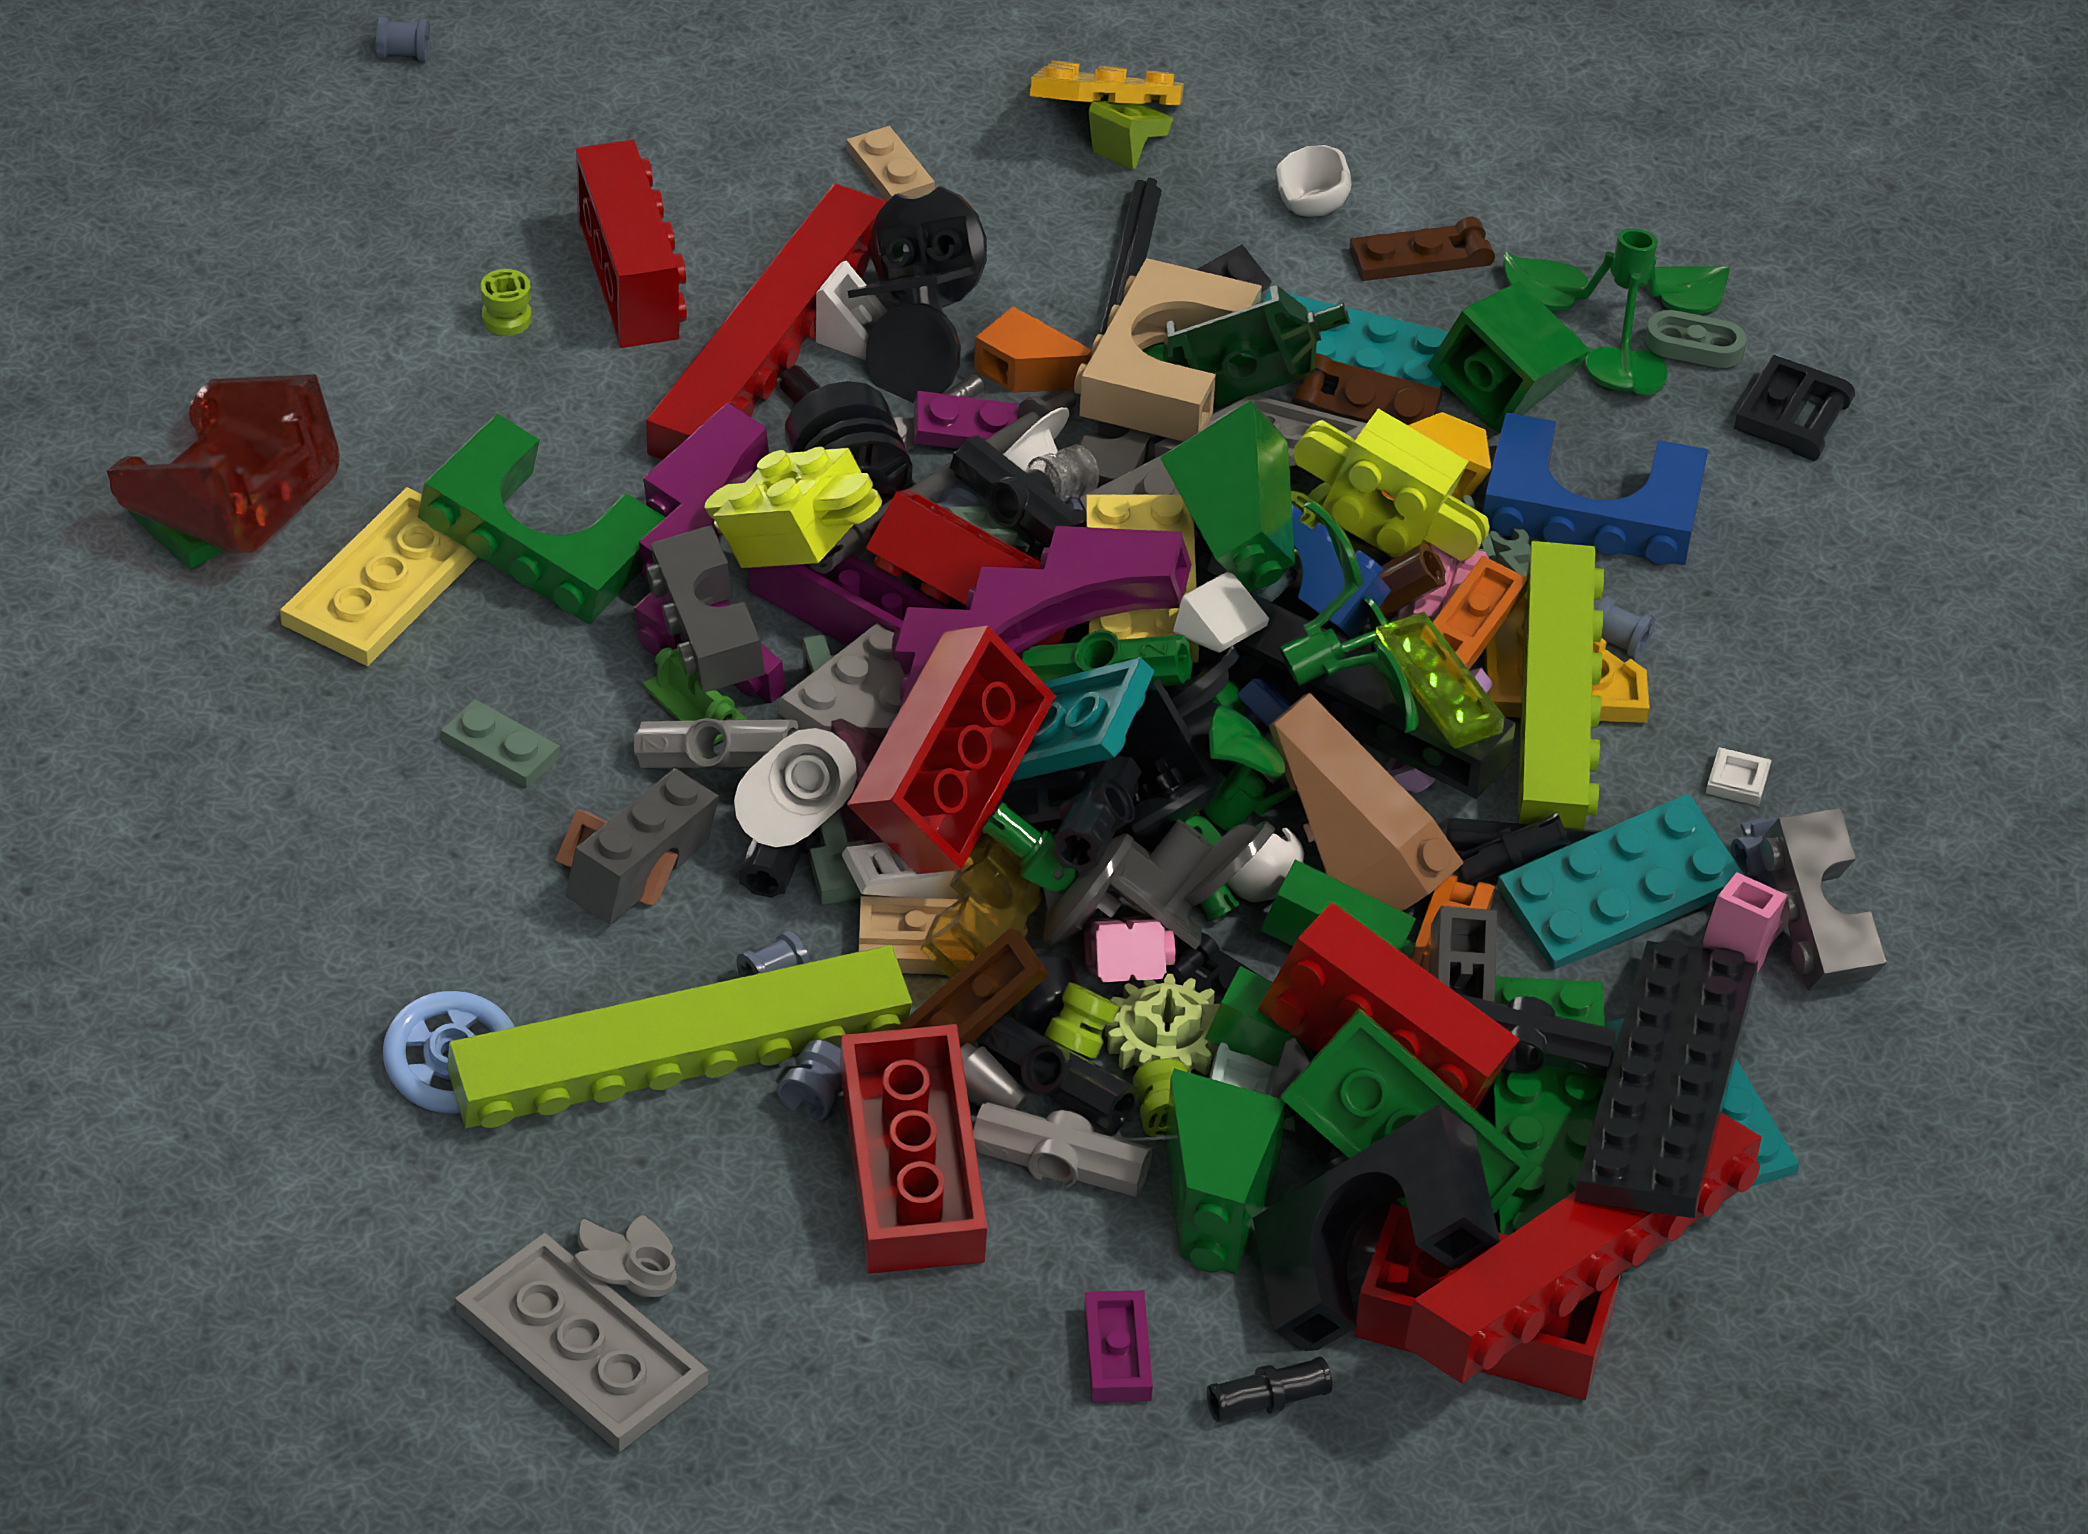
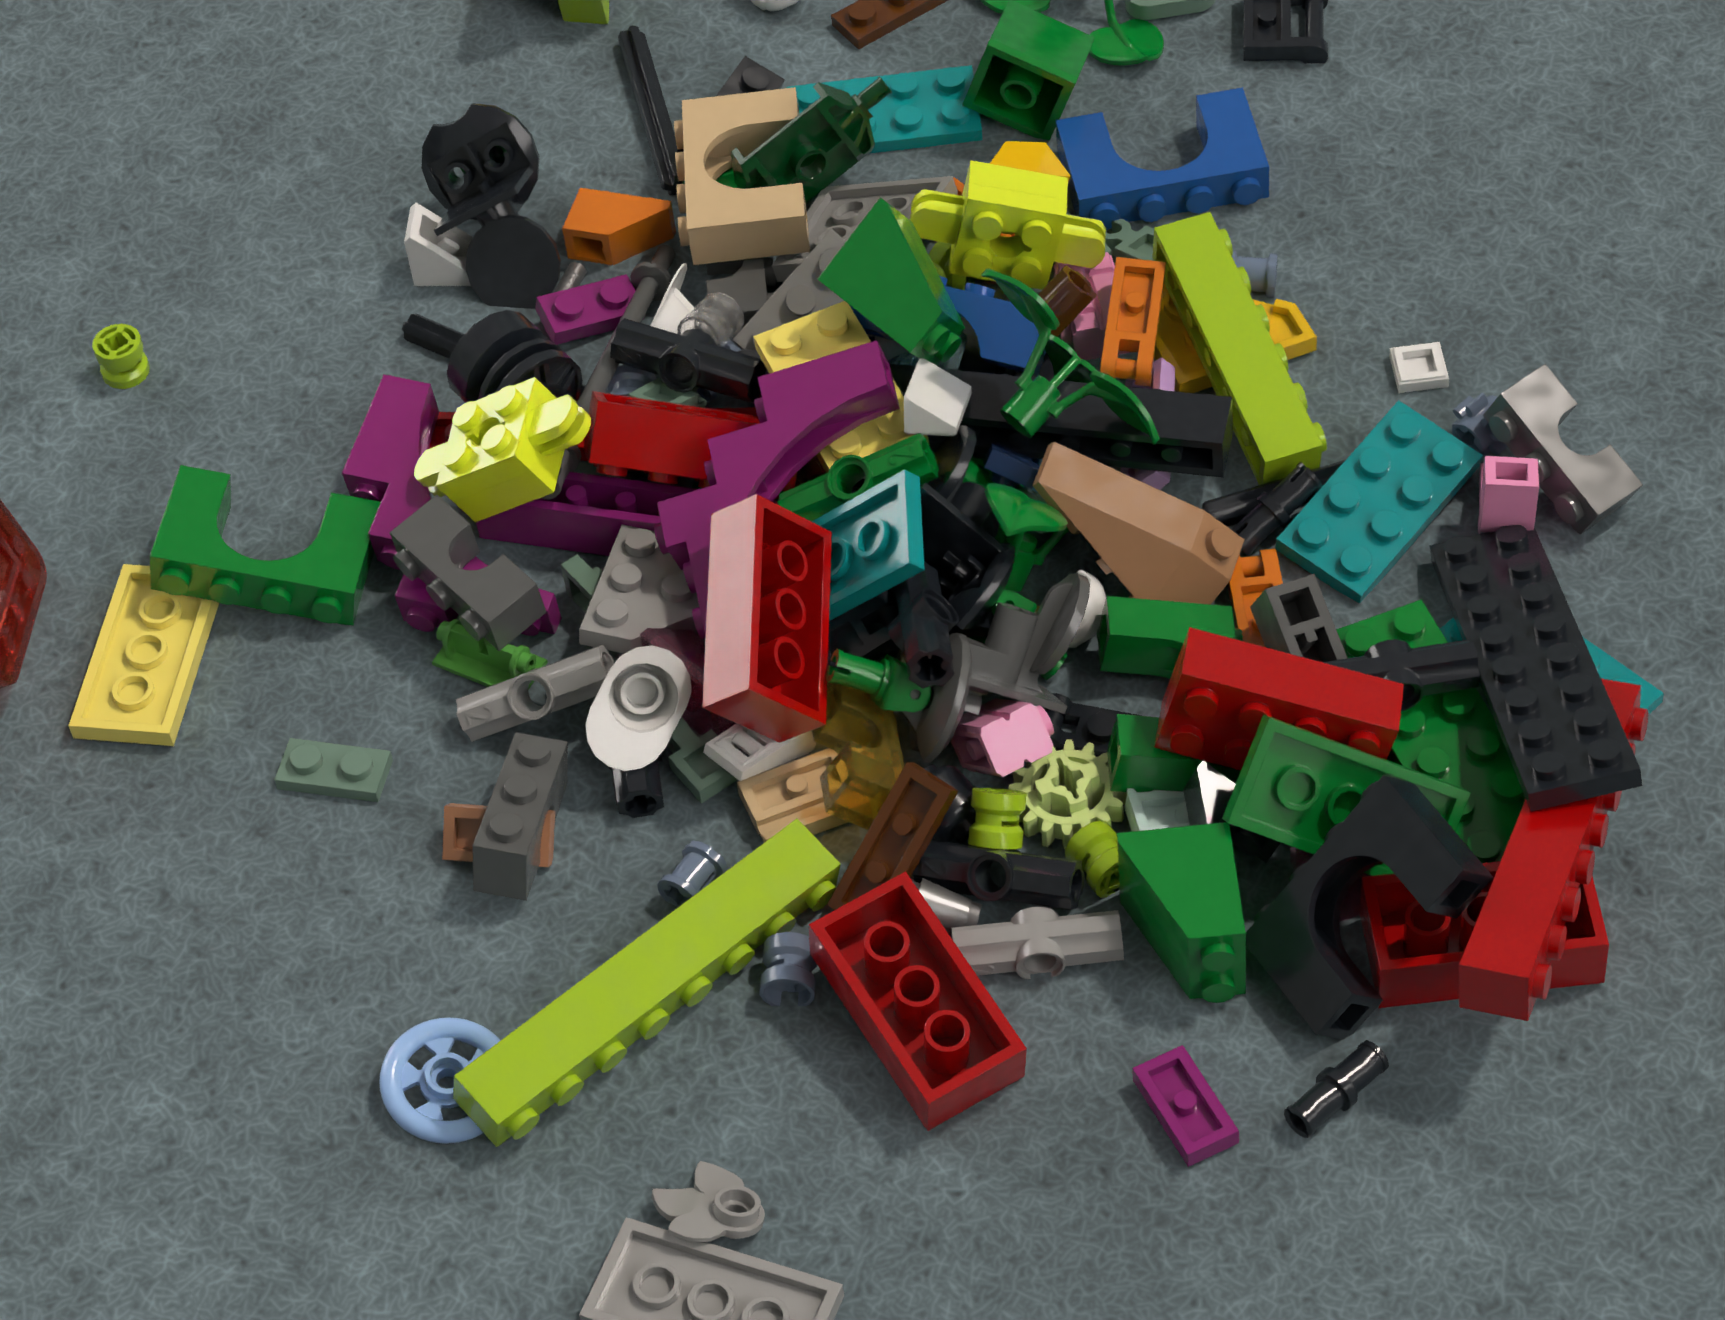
camera: 15 degrees left, 5 degrees up
(630, 243) = (208, 260): red brick -> none
(769, 322) = (368, 286): red brick -> none
(889, 164) = (395, 100): tan plate -> none
(1364, 391) = (927, 151): reddish brown plate -> none
(1441, 680) = (1161, 387): clear neon green plate -> none

